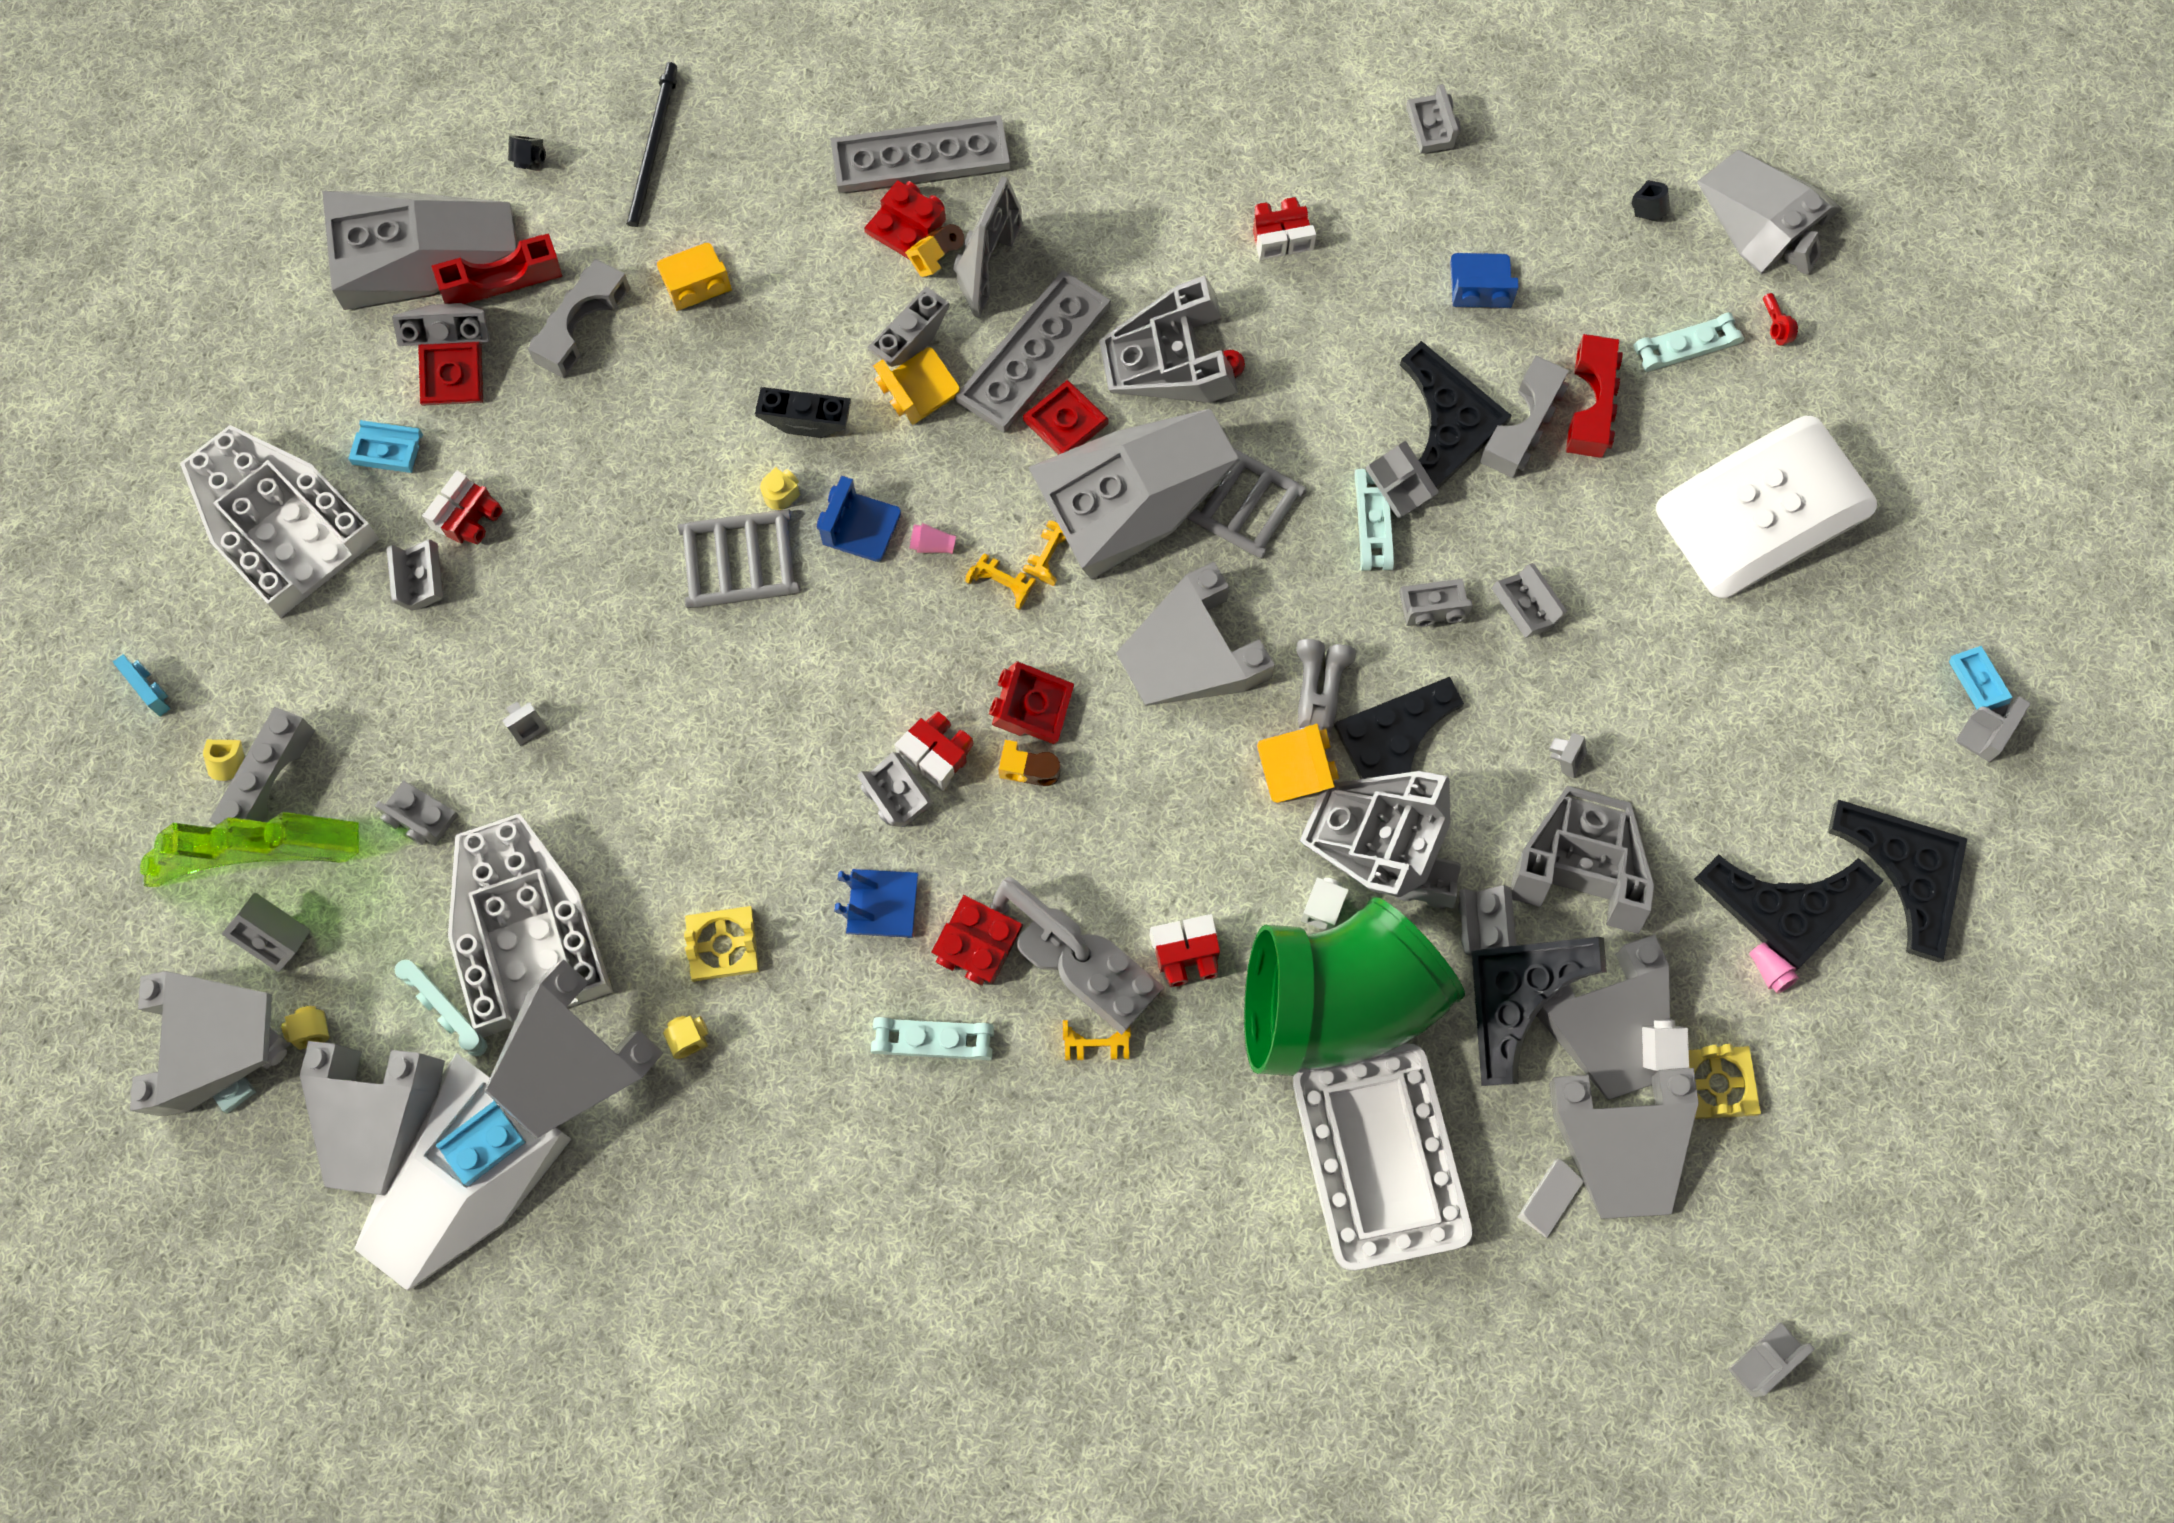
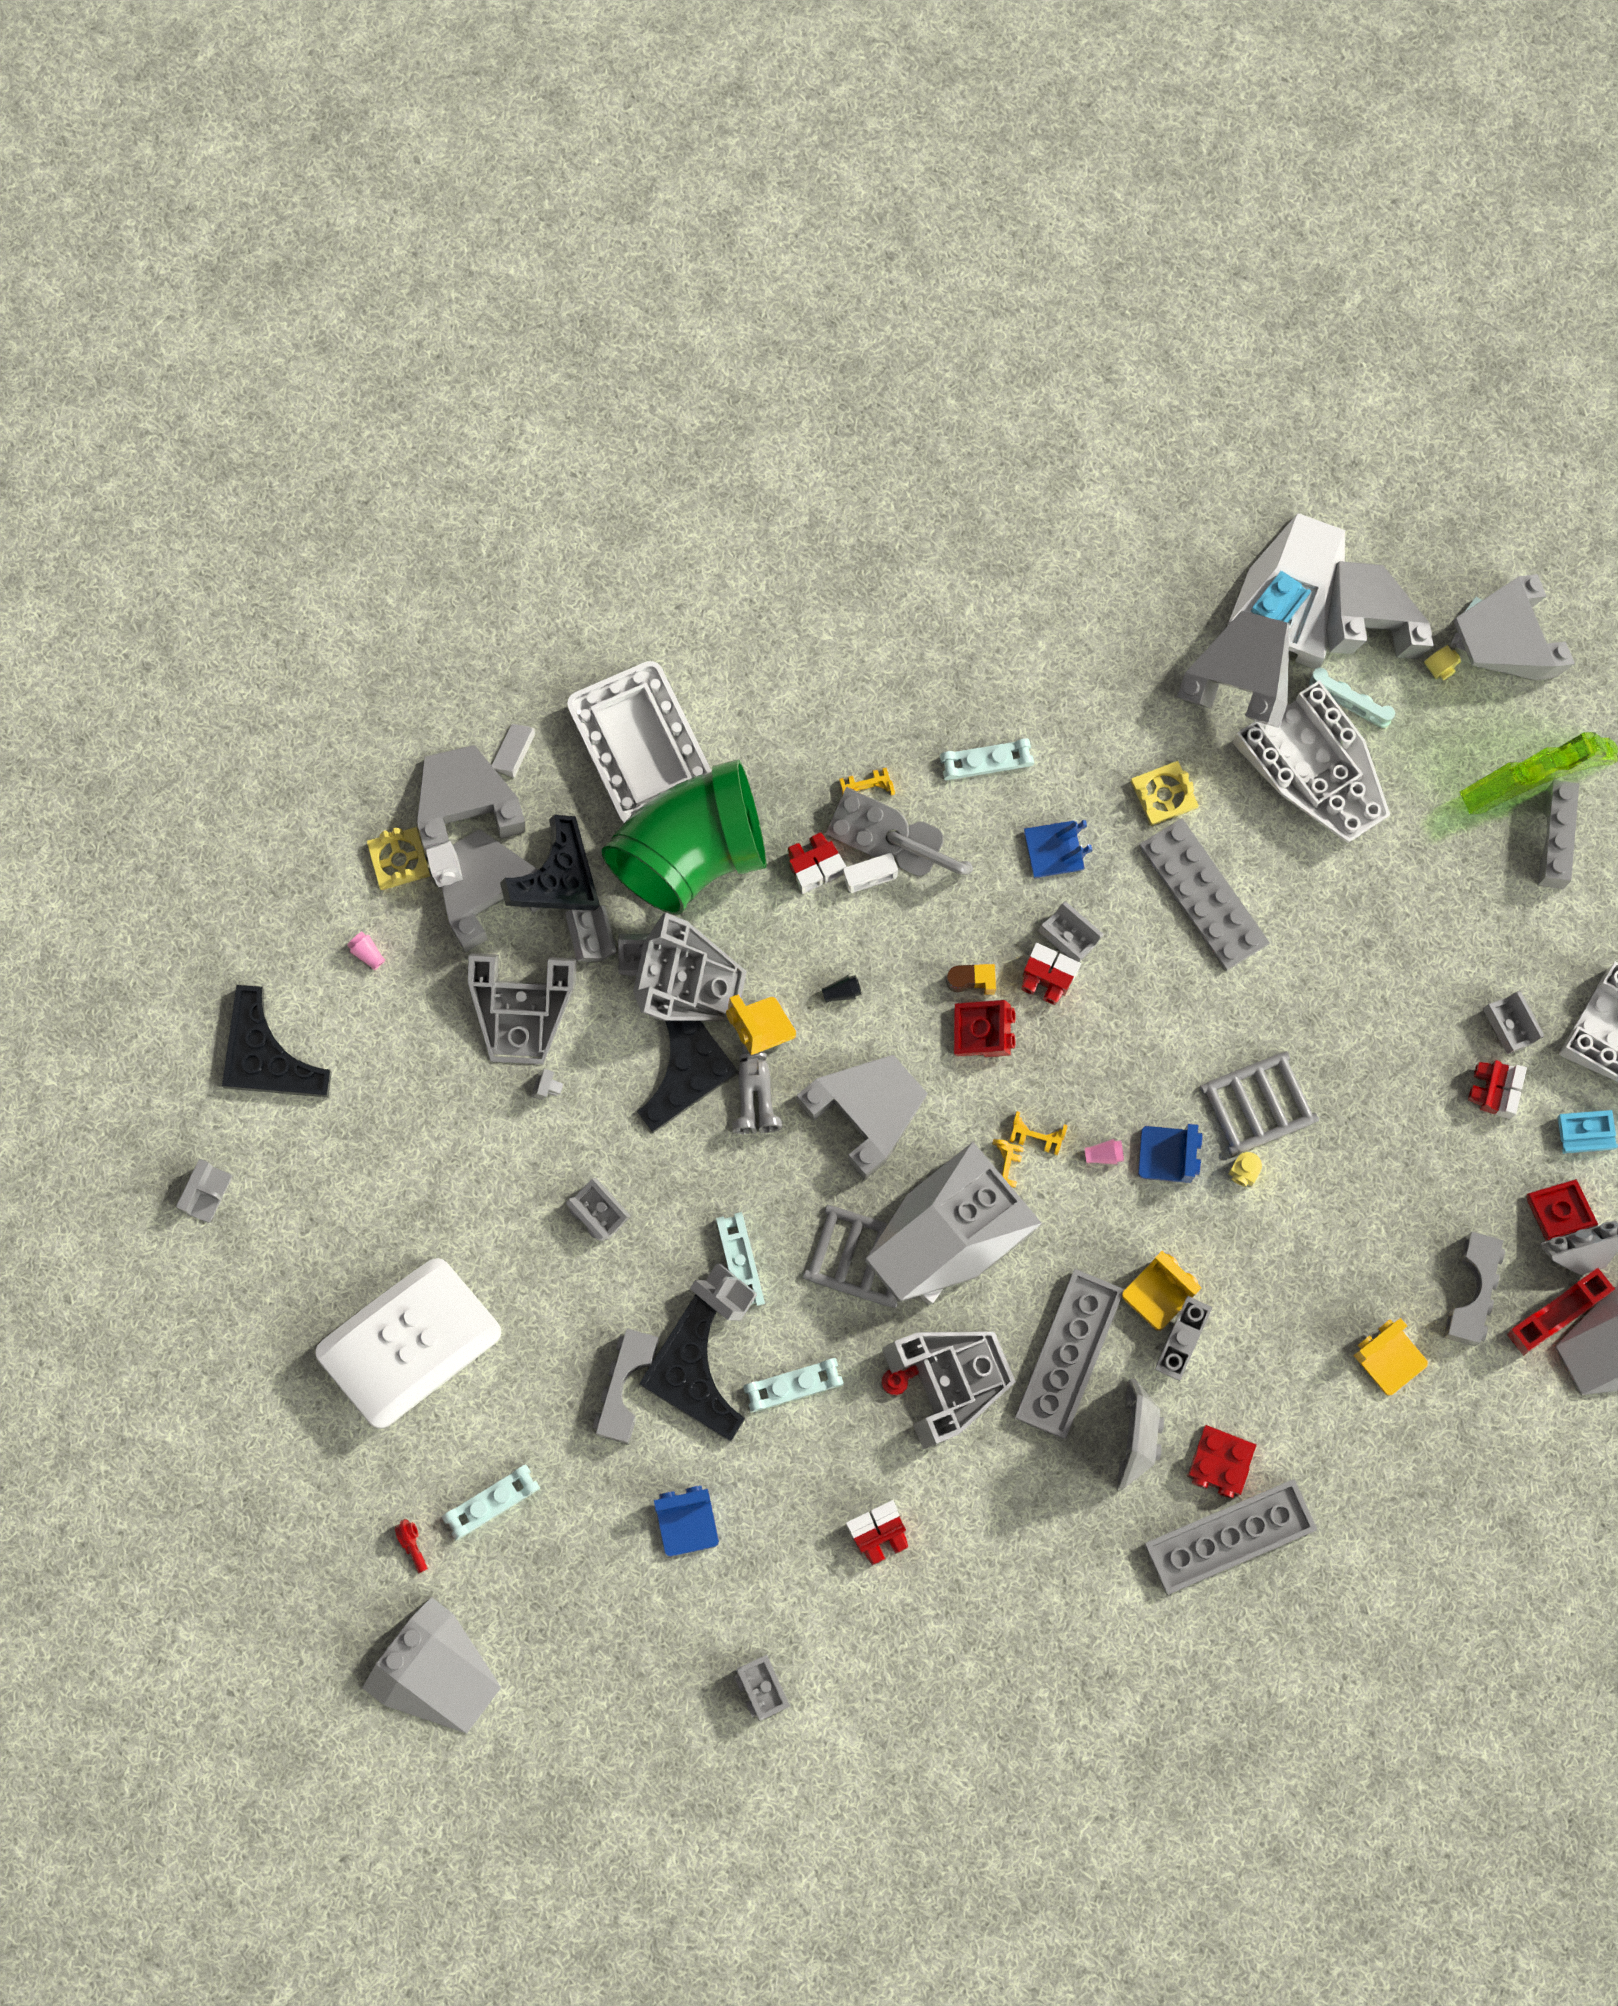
camera: 165 degrees right, 5 degrees up
(223, 758) = (1594, 840): light yellow plate -> none
(266, 932) = (1500, 720): light grey panel -> none
(418, 813) = (1430, 834): light grey bracket -> none
(523, 722) = (1378, 922): light grey tile -> none
(525, 151) = (1588, 1449): black plate -> none
(667, 83) = (1479, 1492): black bar -> none
(686, 1036) = (1166, 719): light yellow plate -> none
(717, 809) = (1204, 894): none -> light grey plate
(802, 412) = (1248, 1239): black slope -> none
(933, 247) = (1185, 1434): leg -> none
(976, 941) = (974, 834): red plate -> none
(1065, 418) = (1023, 1292): red plate -> none
(1120, 917) = (870, 873): none -> white slope
(1188, 788) = (843, 989): none -> black cone
(1324, 903) = (717, 920): white brick -> none
(1340, 385) = (793, 1385): none -> light aqua plate
(1435, 603) = (675, 1191): light grey bracket -> none
(1596, 364) = (567, 1386): red arch -> none
(1651, 201) = (542, 1643): black plate -> none
(1769, 1361) = (344, 673): light grey panel -> none
(1789, 916) = (353, 995): black plate -> none
(1805, 252) = (392, 1622): light grey tile -> none
(1980, 679) = (216, 1227): medium azure plate -> none

